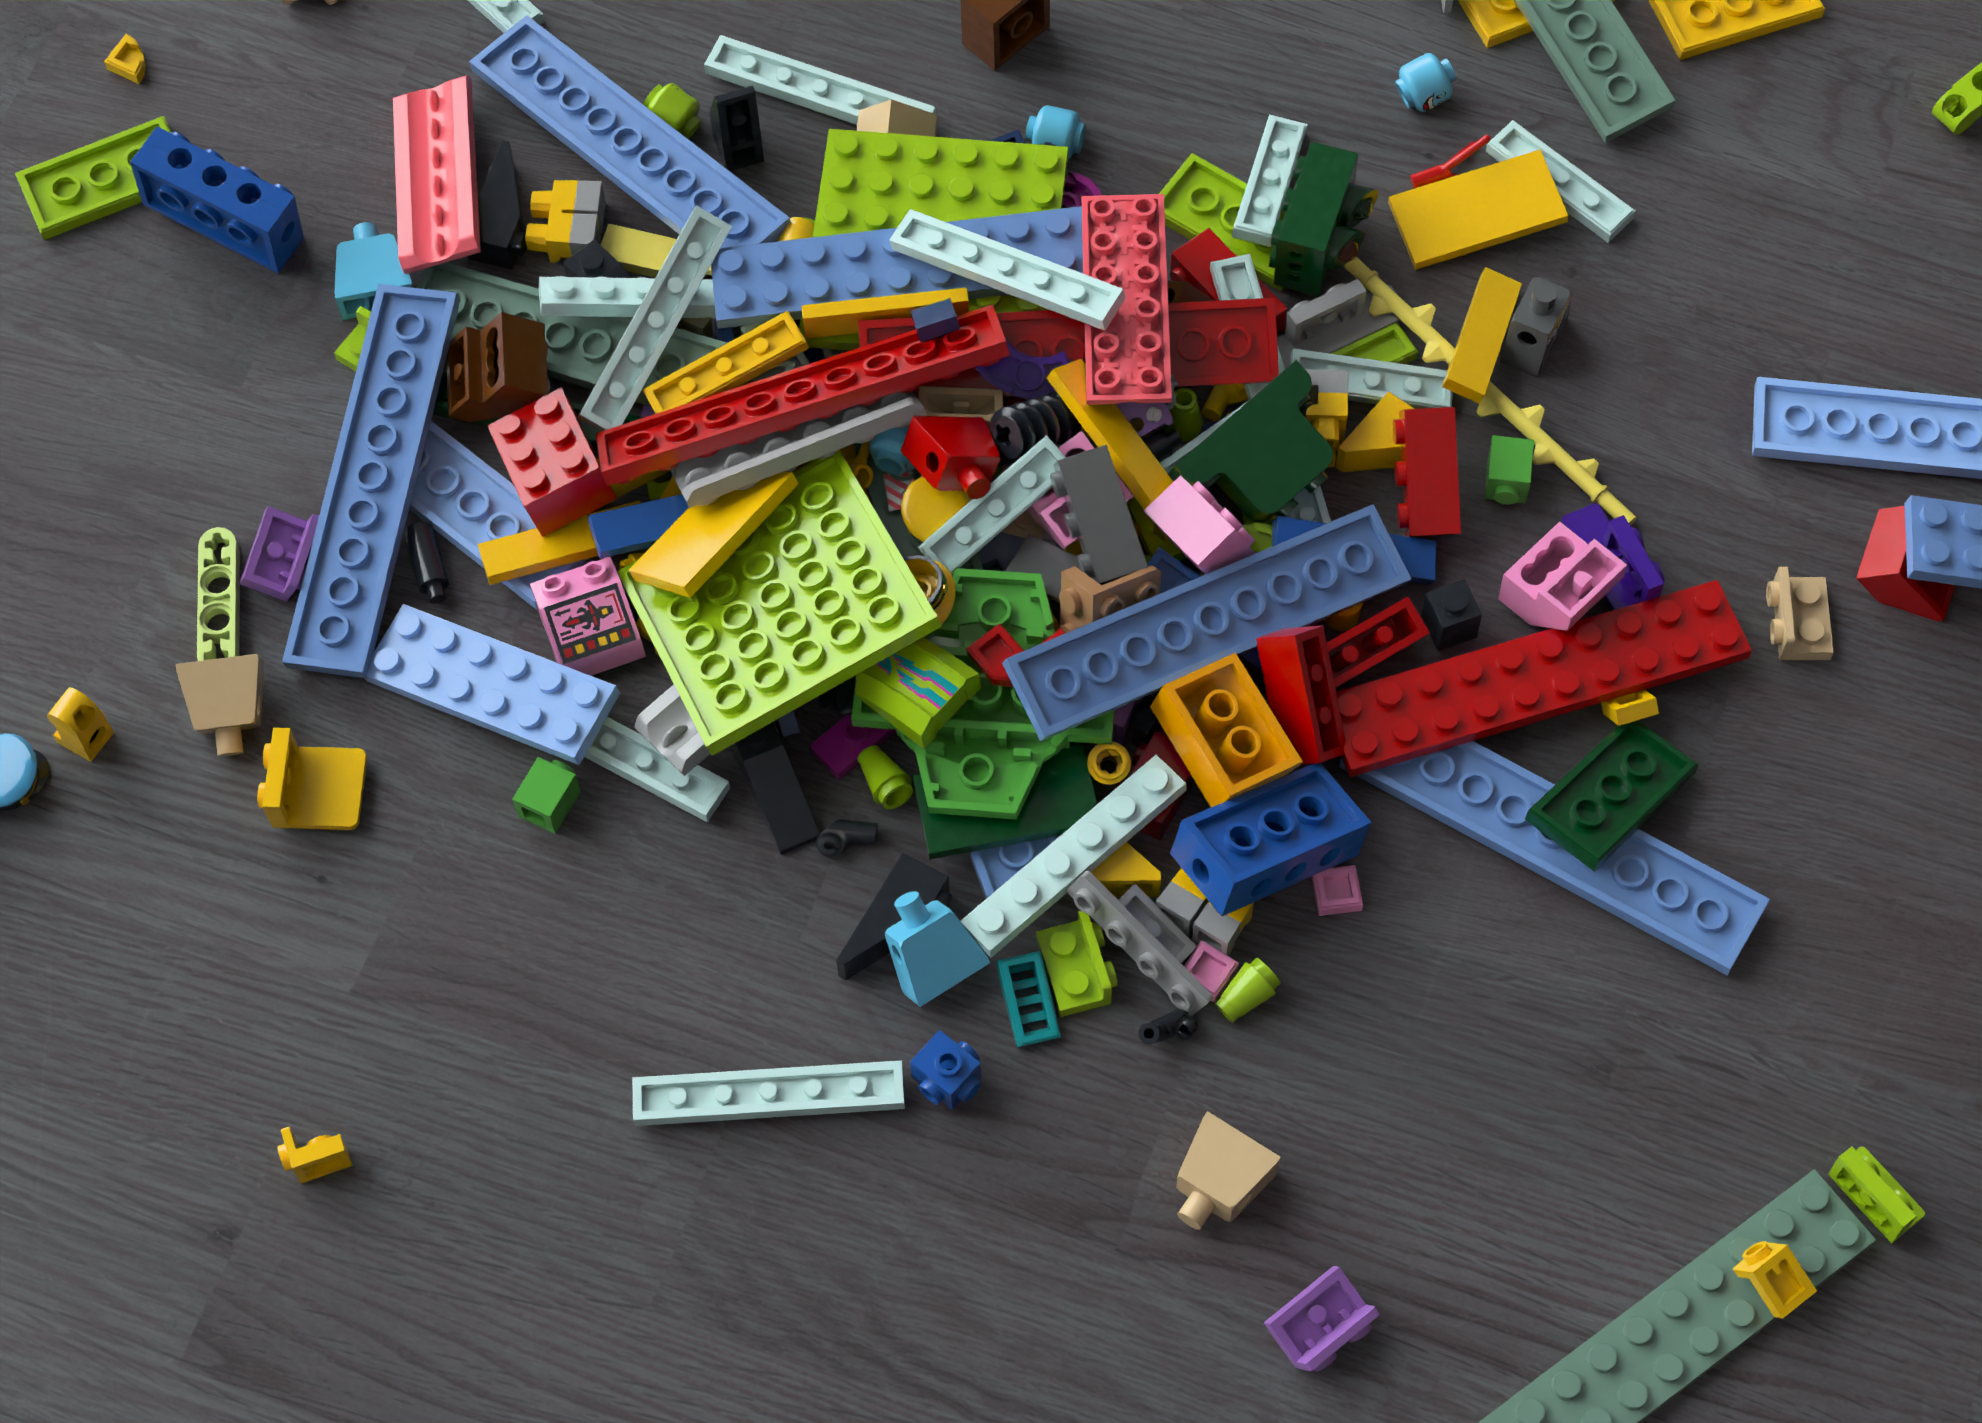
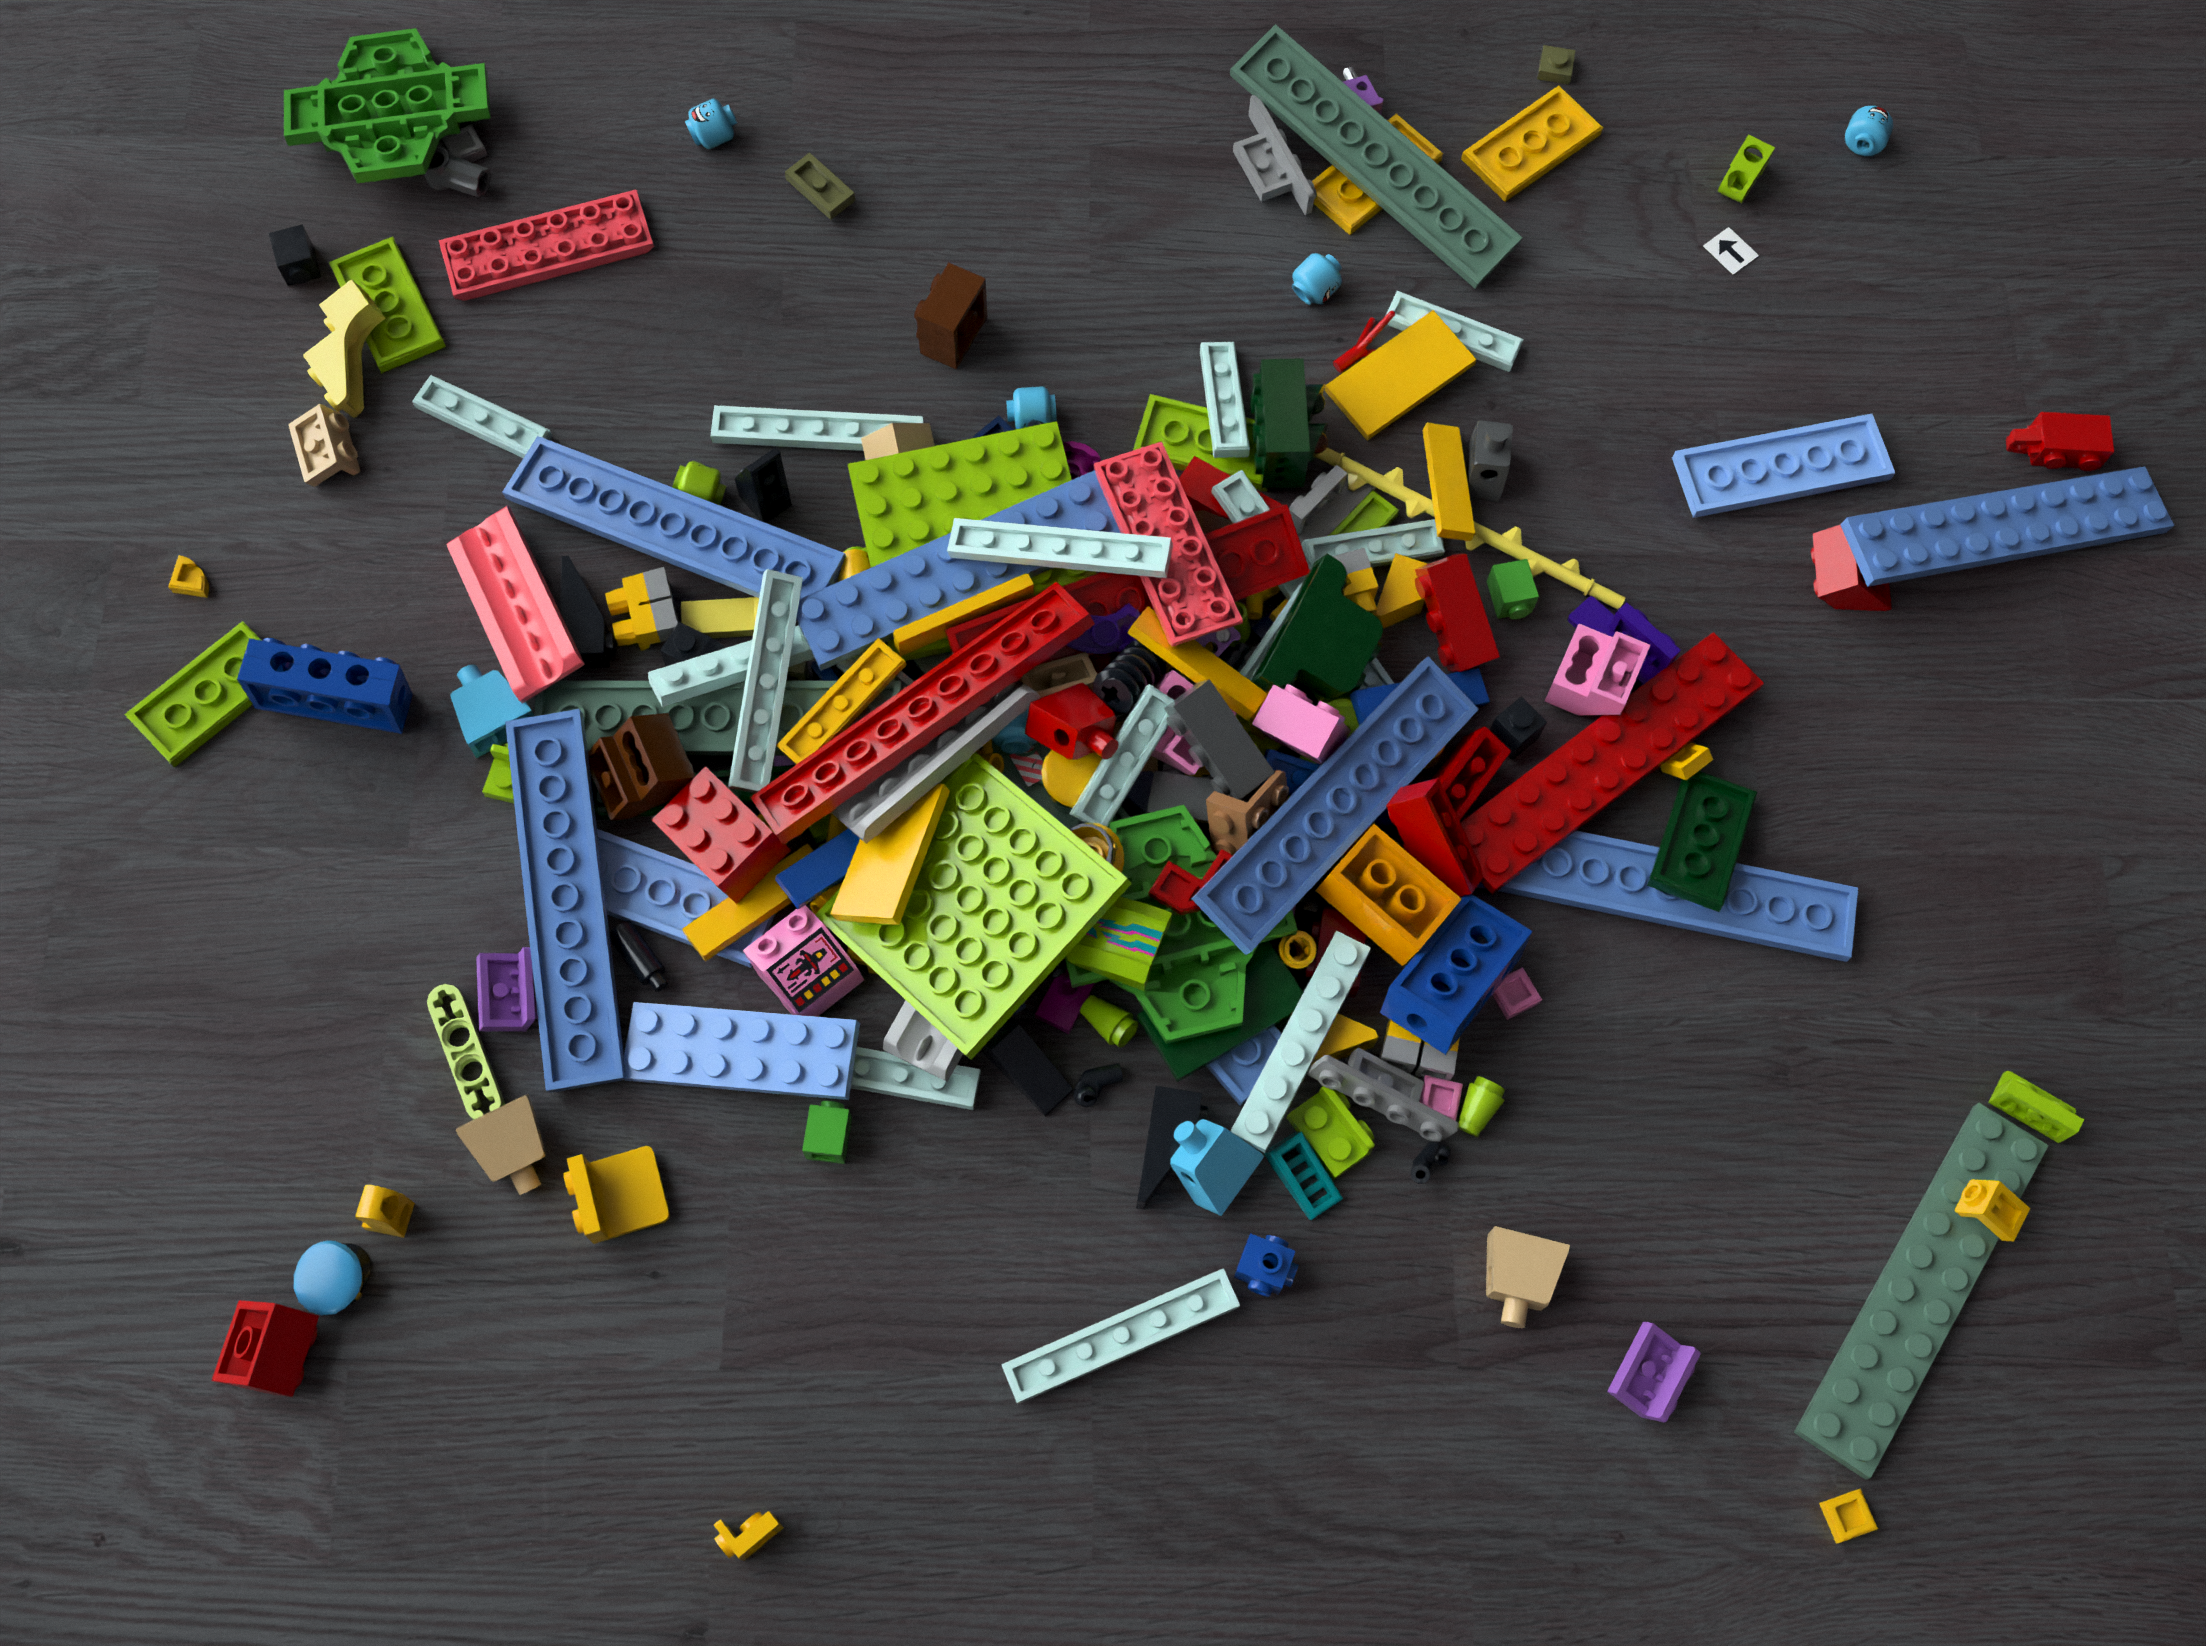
camera: 25 degrees left, 5 degrees up
(935, 320) = (1014, 610): dark blue tile -> none
(1801, 617) = (1784, 641): tan bracket -> none
(1922, 182) = (1730, 250): none -> white sticker

